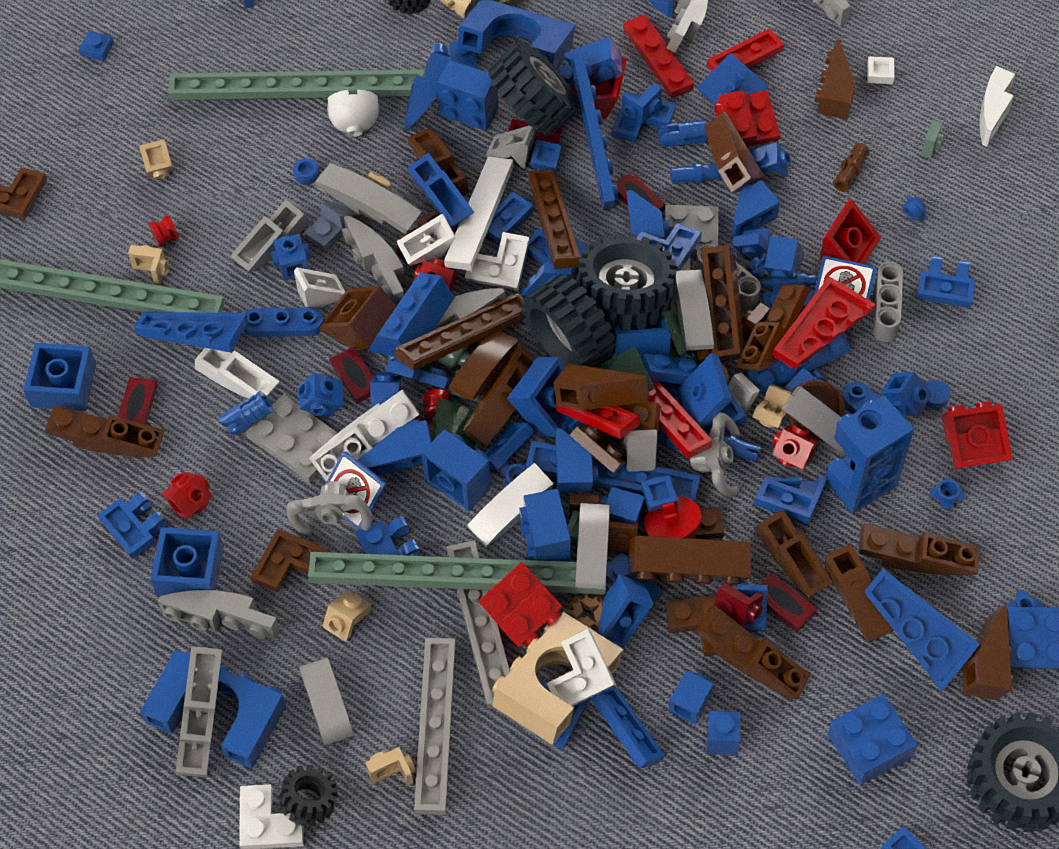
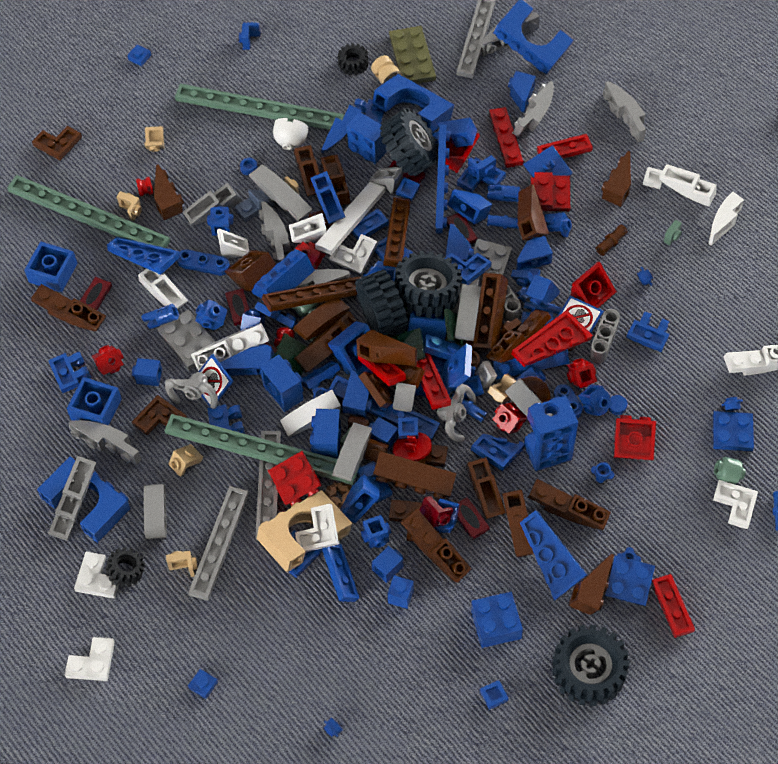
camera: 15 degrees right, 0 degrees up
(202, 243) = (165, 196): none -> reddish brown slope
(251, 499) = (147, 372): none -> blue brick
(392, 156) = (307, 167): none -> reddish brown slope
(642, 160) = (469, 205): none -> blue slope
(660, 654) = (375, 532): none -> blue brick
(875, 360) = (581, 373): none -> red brick
(931, 69) = (688, 184): none -> white slope

